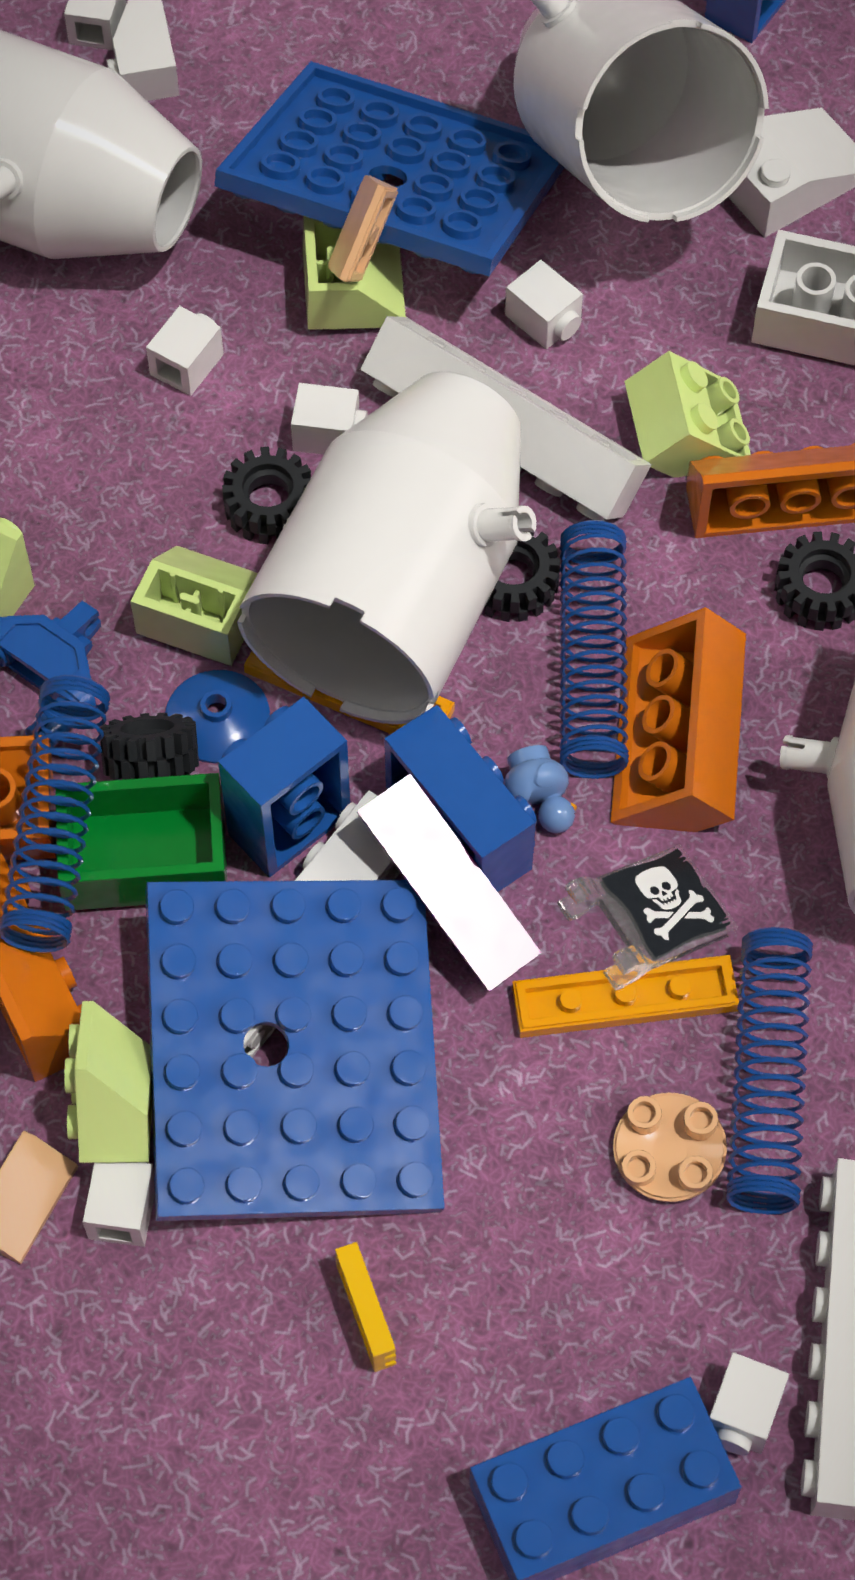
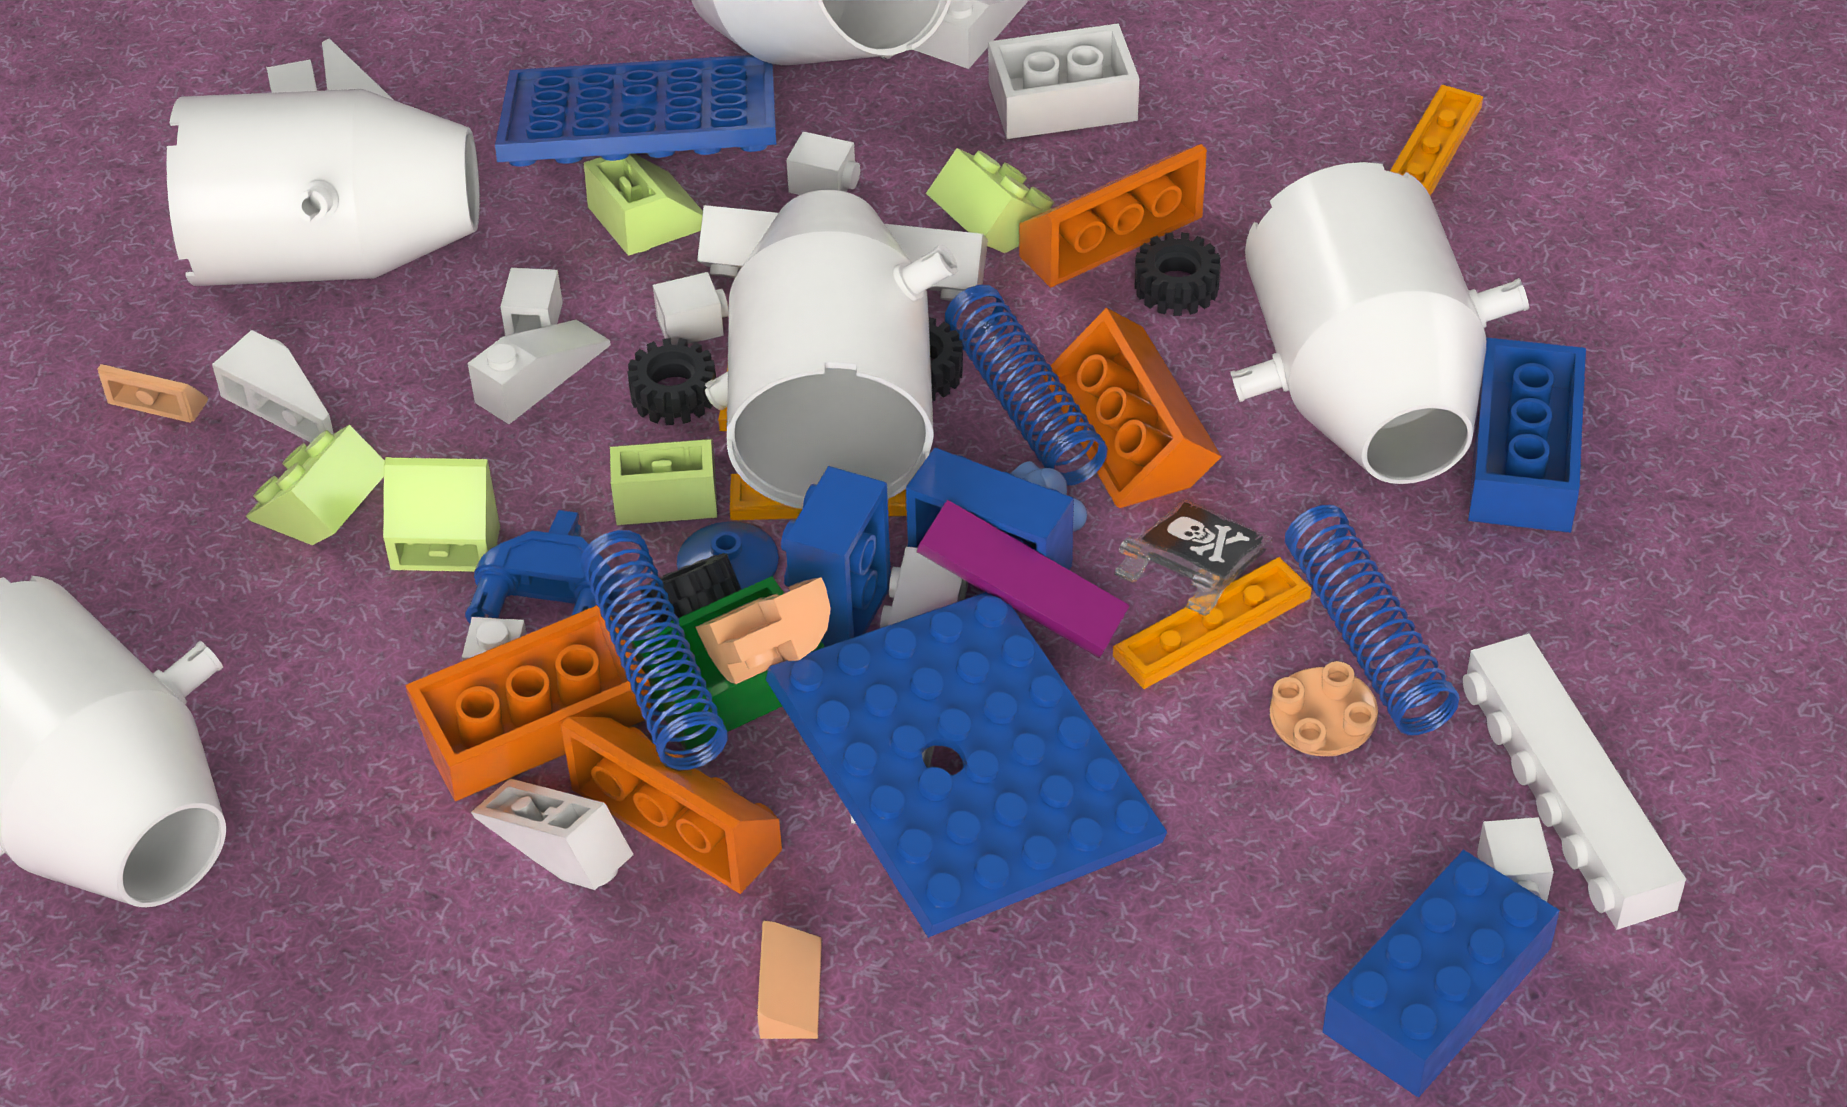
camera: 25 degrees left, 15 degrees down
(111, 1089) = (826, 851): yellowish green slope -> none
(120, 1202) = (882, 942): white brick -> none
(153, 419) = (530, 365): none -> white slope
(162, 842) = (768, 631): none -> light nougat brick
(362, 229) = (649, 140): light nougat slope -> none
(365, 1307) = (1151, 929): yellow tile -> none

